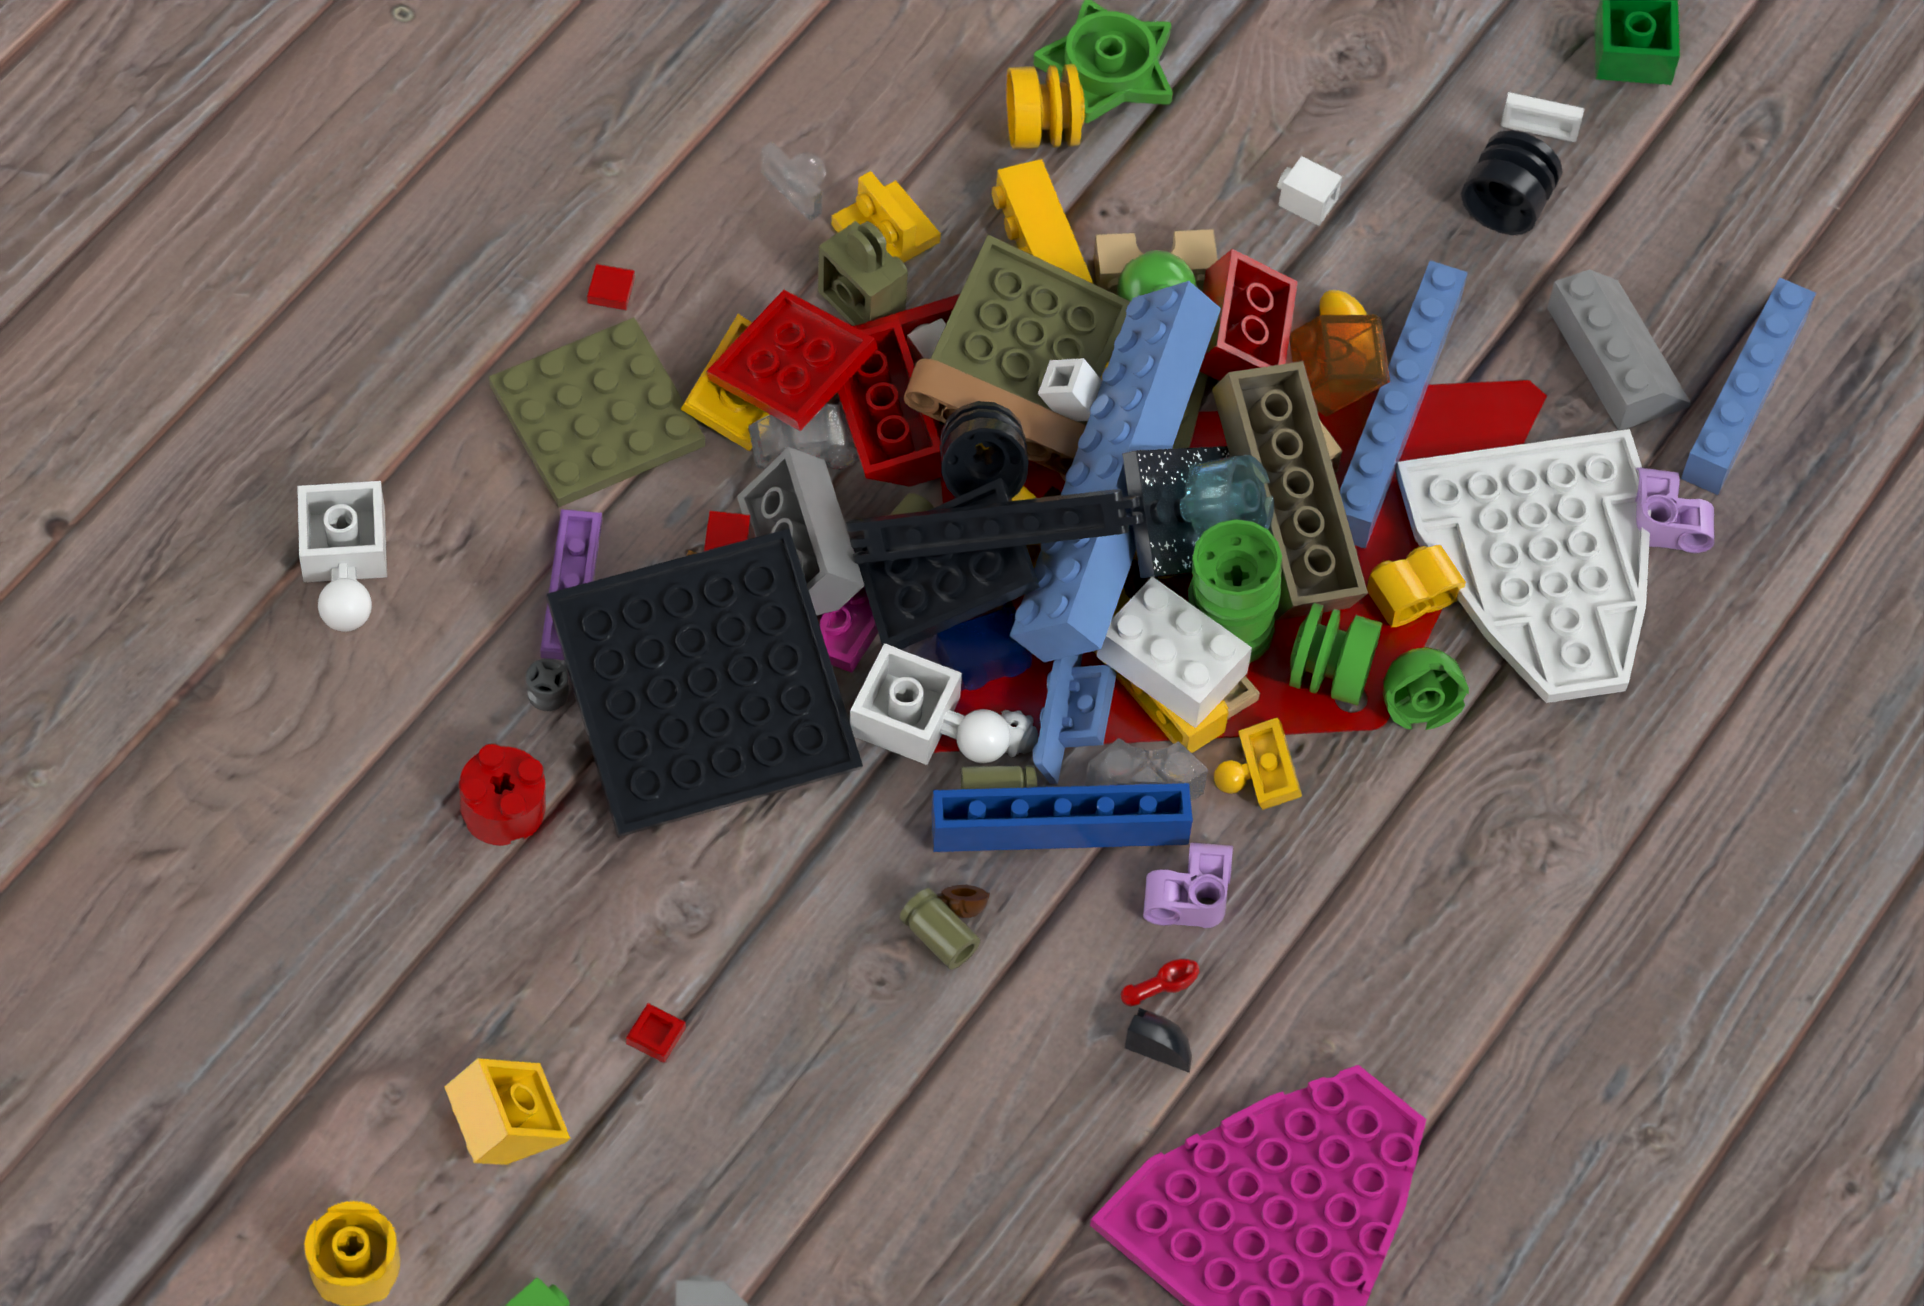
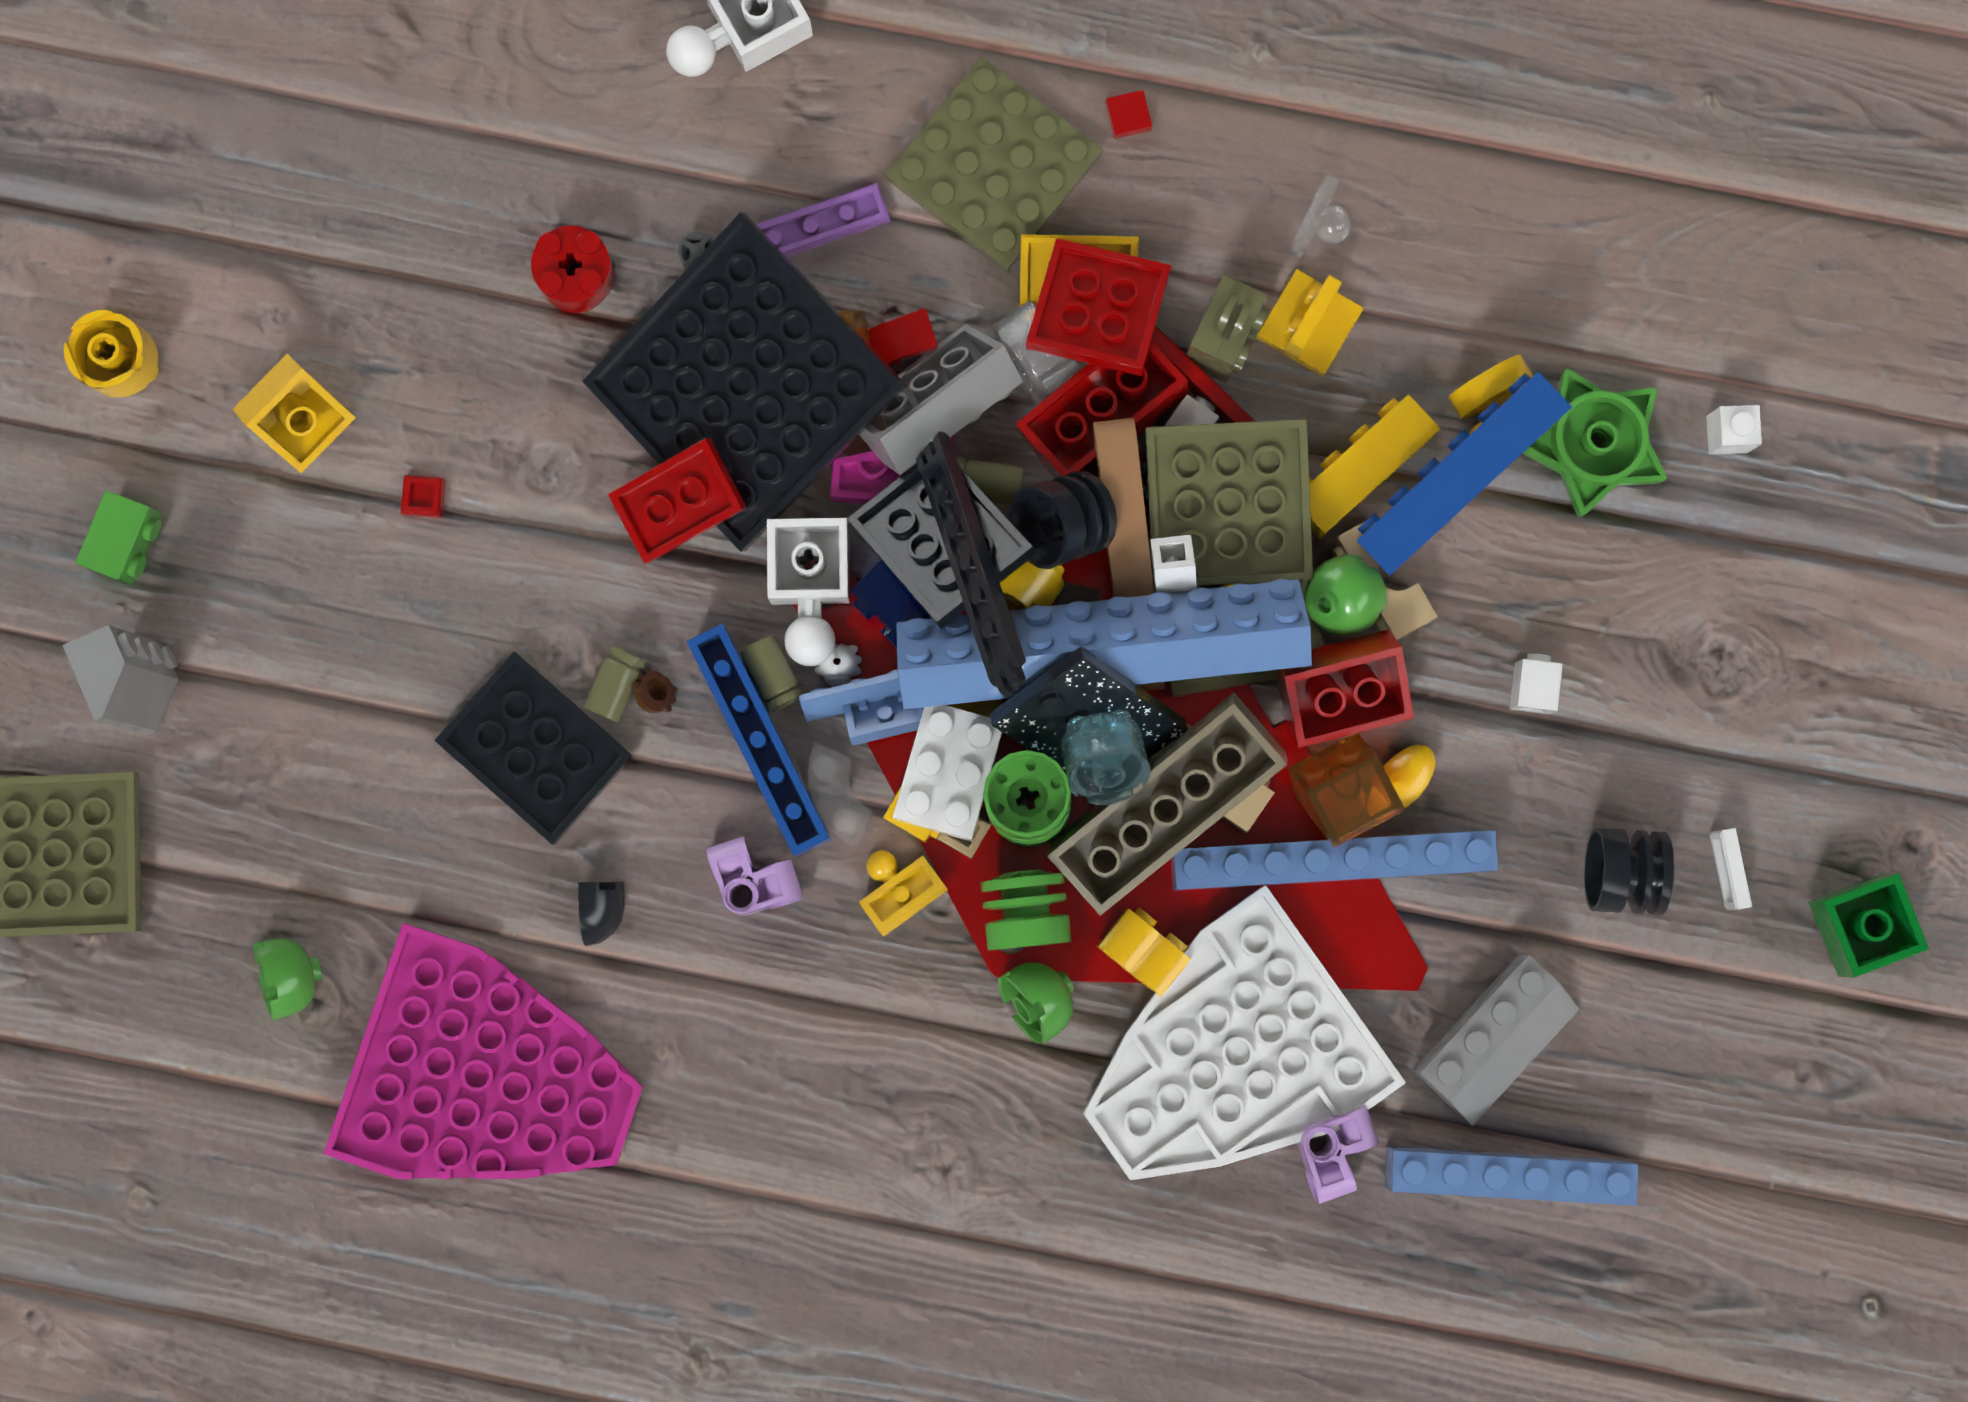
camera: 70 degrees right, 25 degrees up
(786, 793) = (677, 500): none -> red plate
(967, 1029) = (534, 748): none -> black plate
(1098, 142) = (1464, 473): none -> blue brick
(1171, 978) = (661, 896): red piece -> none

